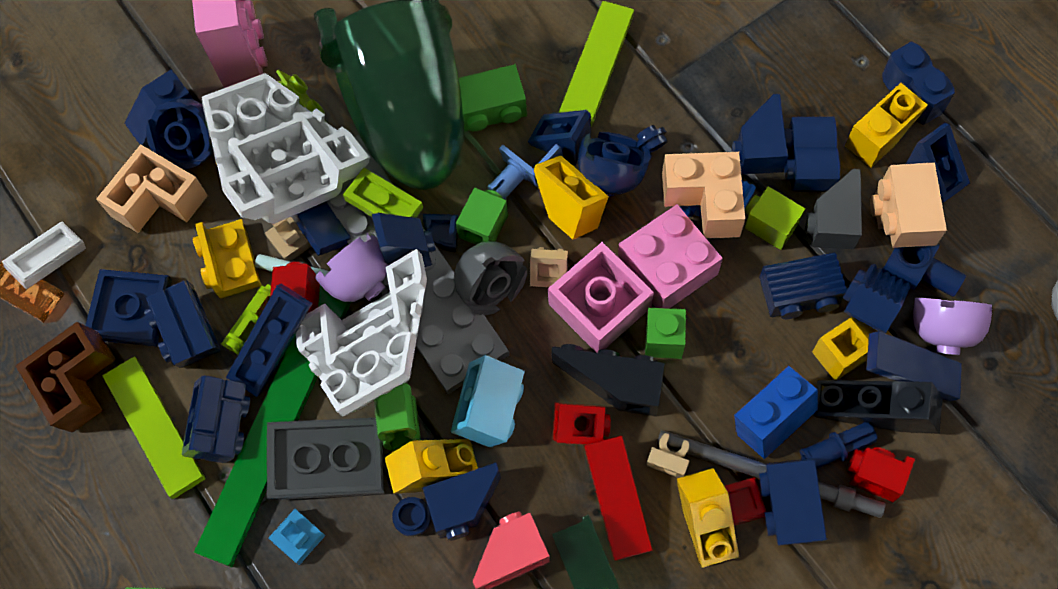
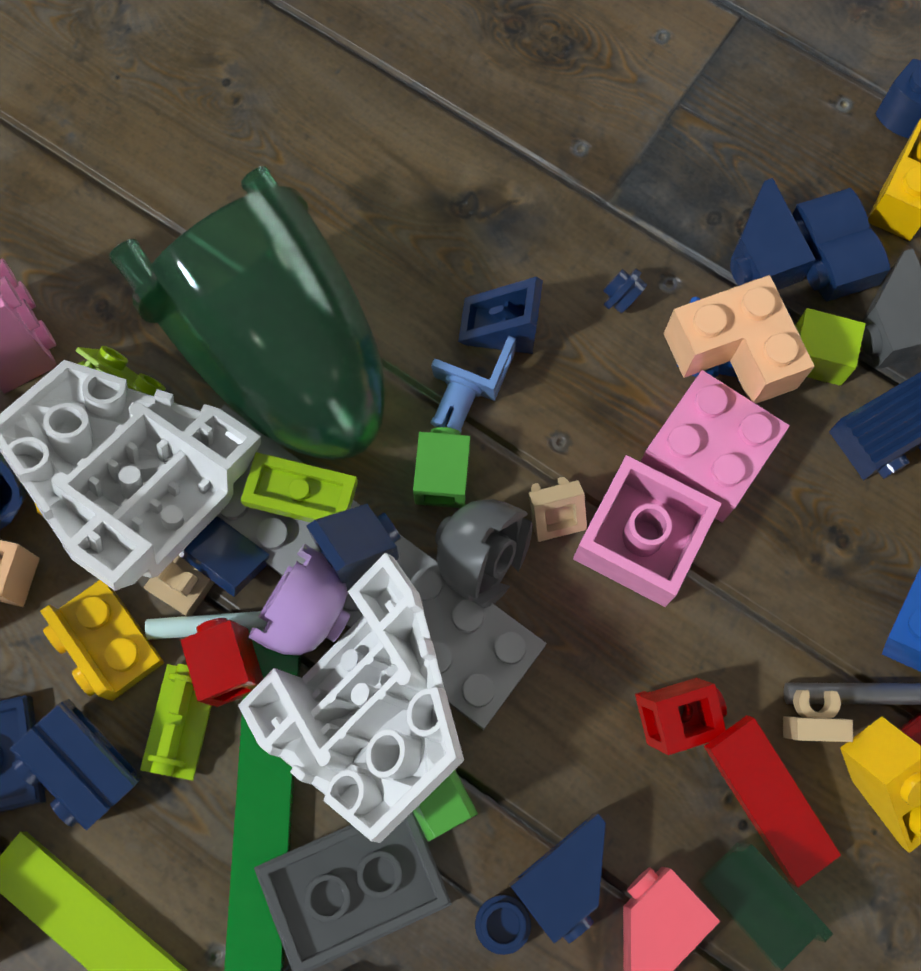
camera: 25 degrees left, 5 degrees up
(215, 420) = (176, 889): dark blue brick -> none
(269, 339) = (213, 746): dark blue tile -> none
(428, 462) = (504, 845): yellow slope -> none
(443, 230) = (392, 498): dark blue tile -> none
(488, 401) = (550, 728): medium azure brick -> none
(492, 98) = (397, 293): bright green brick -> none
(569, 197) = (551, 403): yellow slope -> none
(598, 59) = (510, 201): lime tile -> none
(613, 162) = (591, 339): dark blue cylinder -> none
(623, 382) = (714, 637): black slope -> none
(665, 333) = (746, 550): bright green brick -> none

